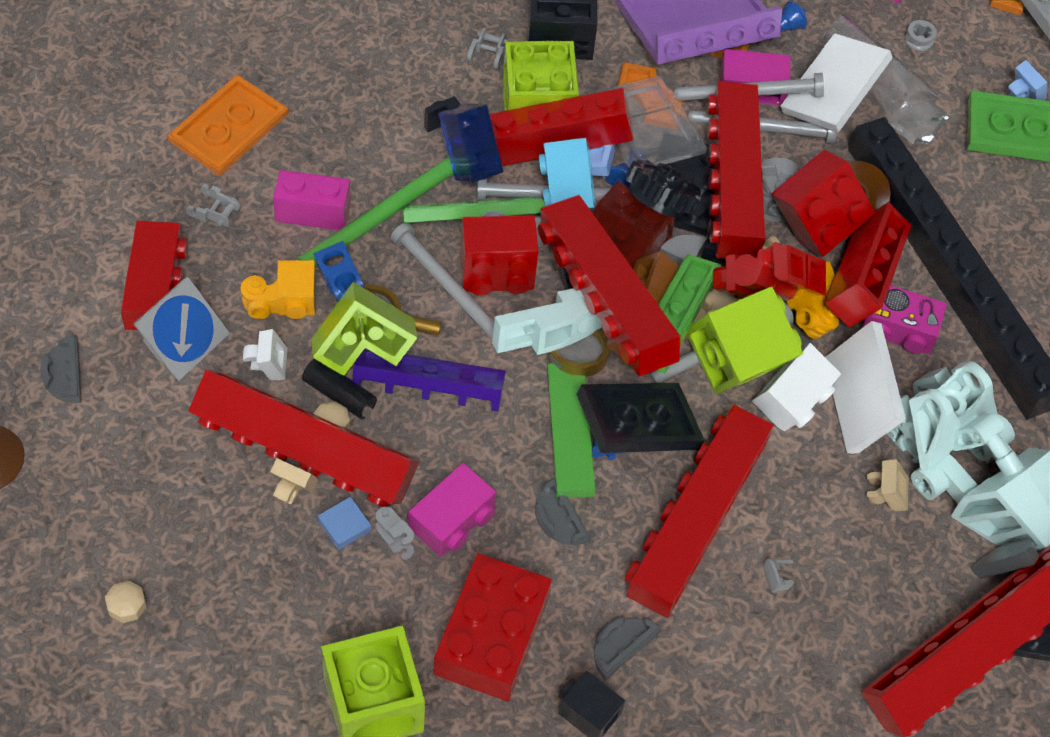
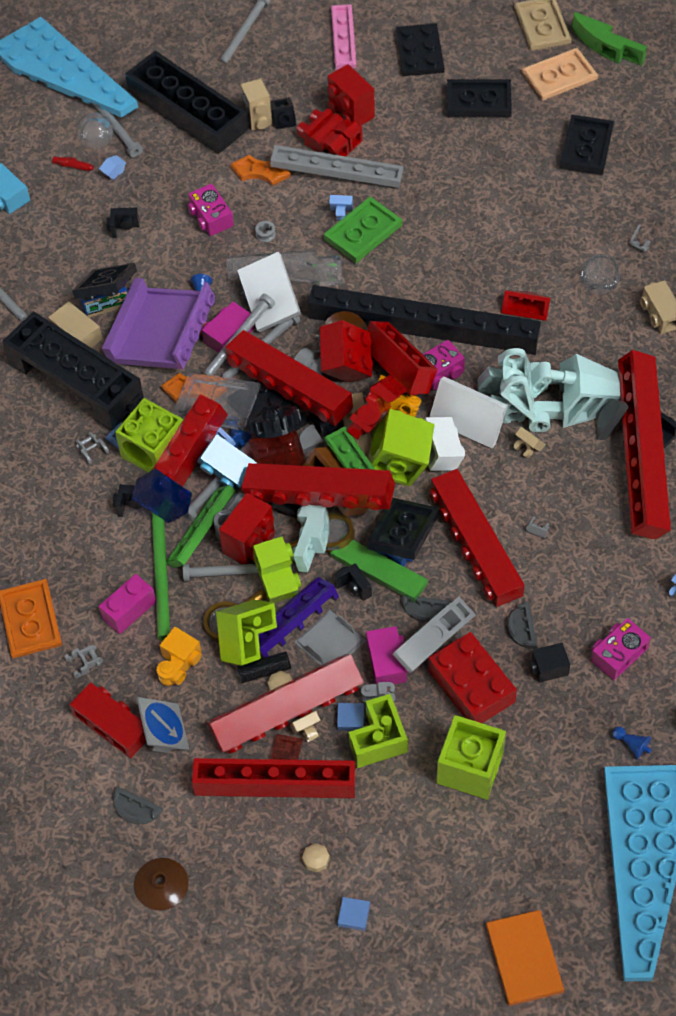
camera: 45 degrees left, 0 degrees up
(78, 691) = (354, 913): none -> medium blue tile
(194, 489) = (274, 778): none -> red brick
(250, 481) = (287, 747): none -> clear red tile
(268, 355) = (214, 691): white tile -> none
(338, 572) = (383, 736): none -> lime brick
(340, 276) = (194, 619): blue leg -> none
(433, 436) = (329, 639): none -> light grey piece
(469, 314) = (273, 565): none -> lime brick
(519, 541) = (434, 634): none -> light grey slope
(530, 410) = (355, 579): none -> black bracket
(770, 177) = (307, 362): light grey piece -> none

